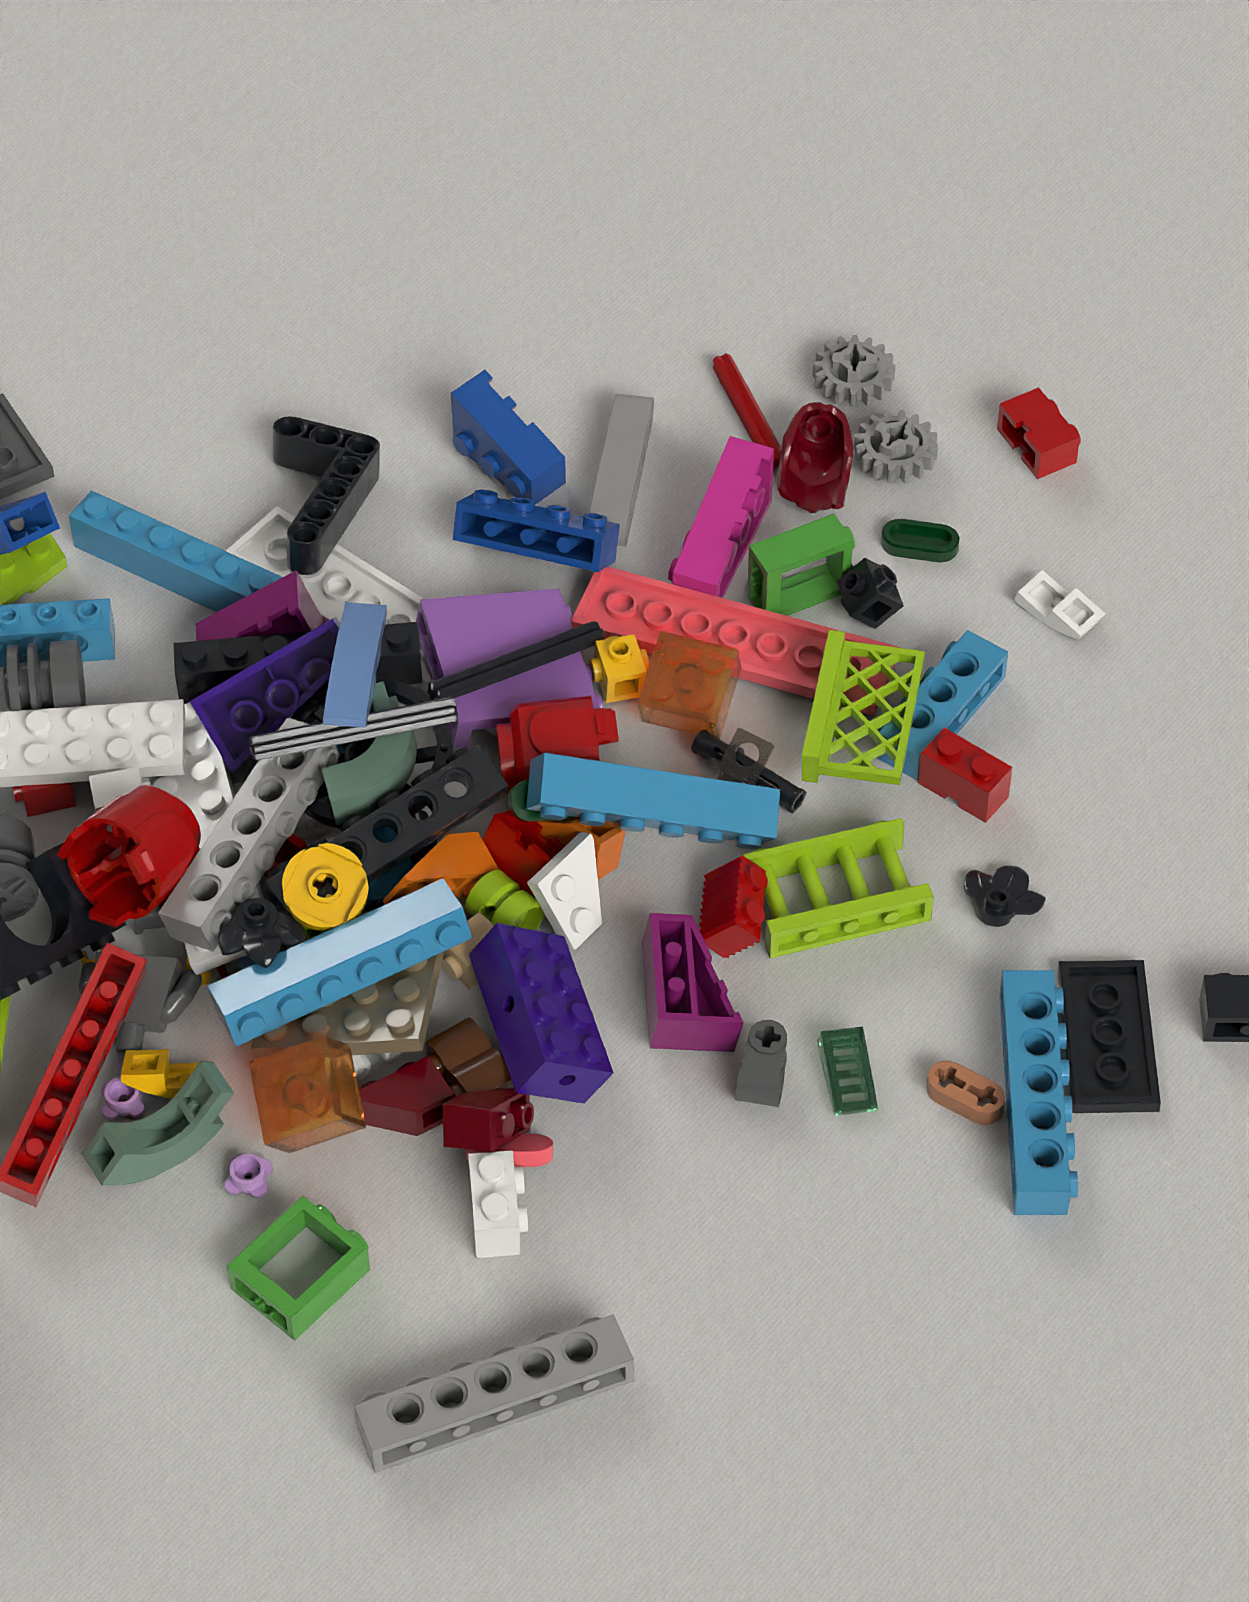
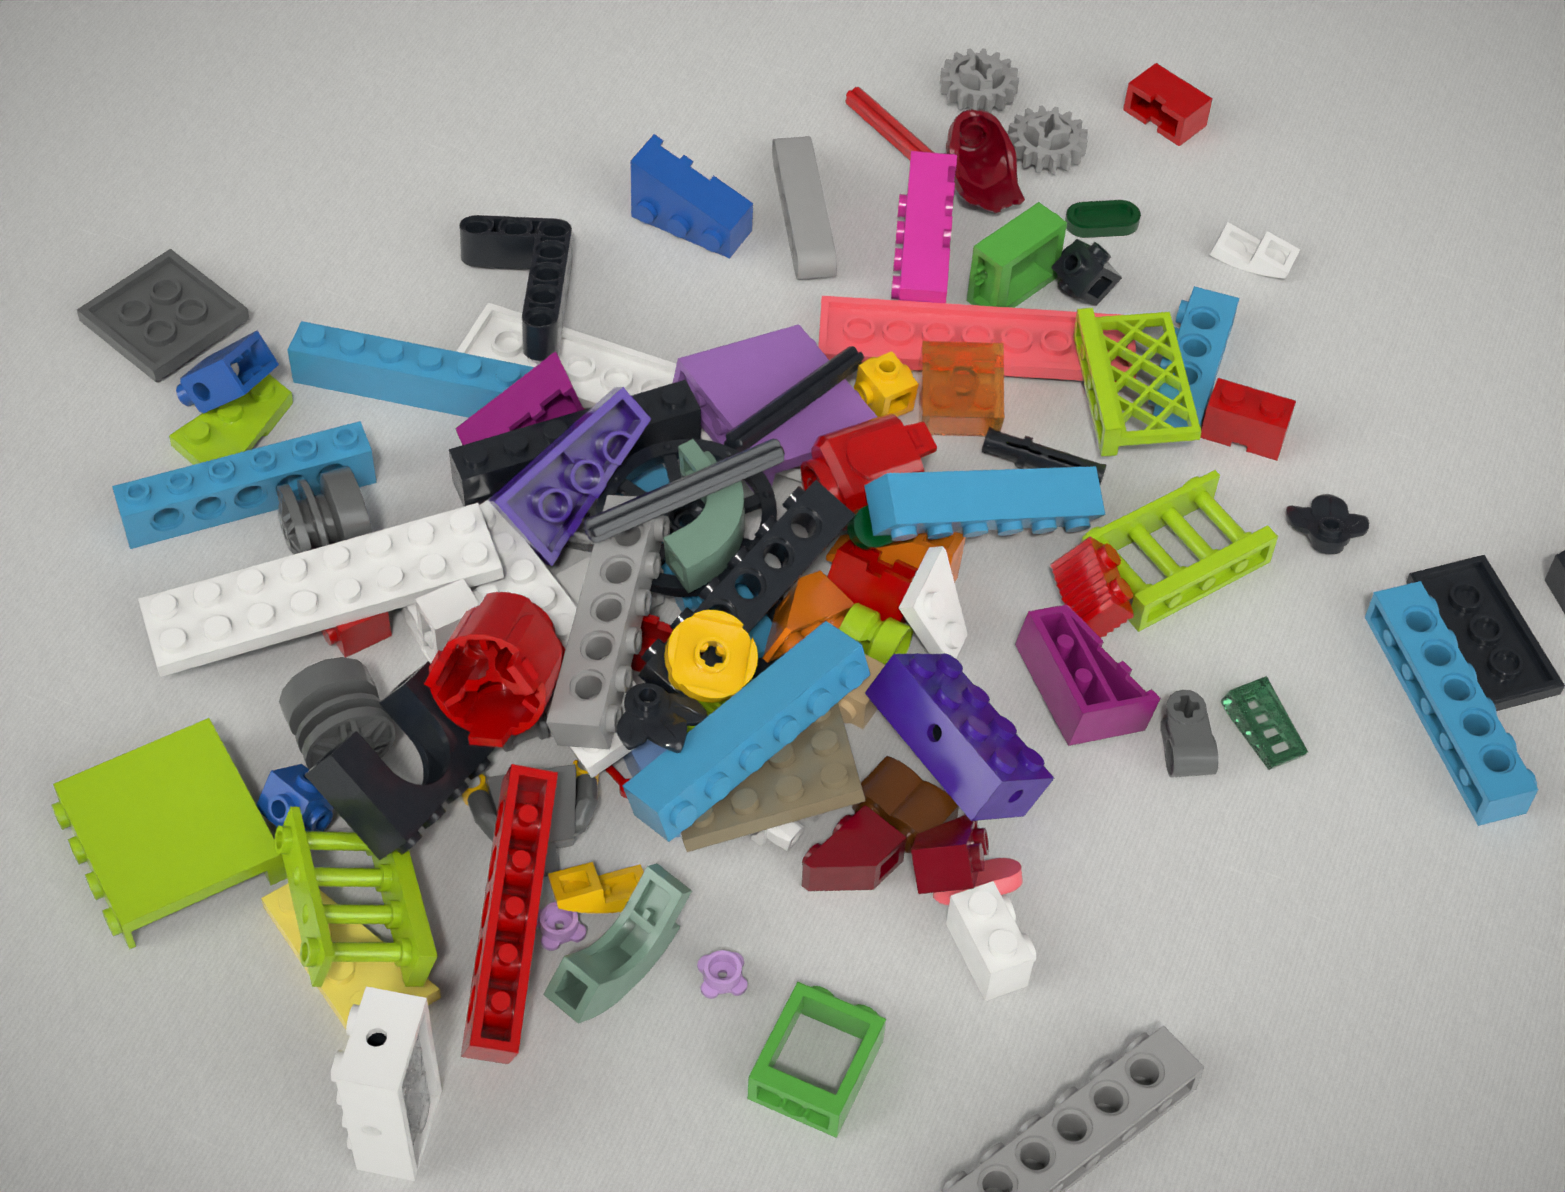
camera: 20 degrees left, 0 degrees up
(307, 1094) = (762, 874): clear orange brick -> none
(355, 665) = (665, 427): medium blue slope -> none
(536, 531) = (753, 276): blue brick -> none
(731, 770) = (1033, 459): clear smoke bracket -> none
(965, 1092) = (1382, 717): nougat beam -> none

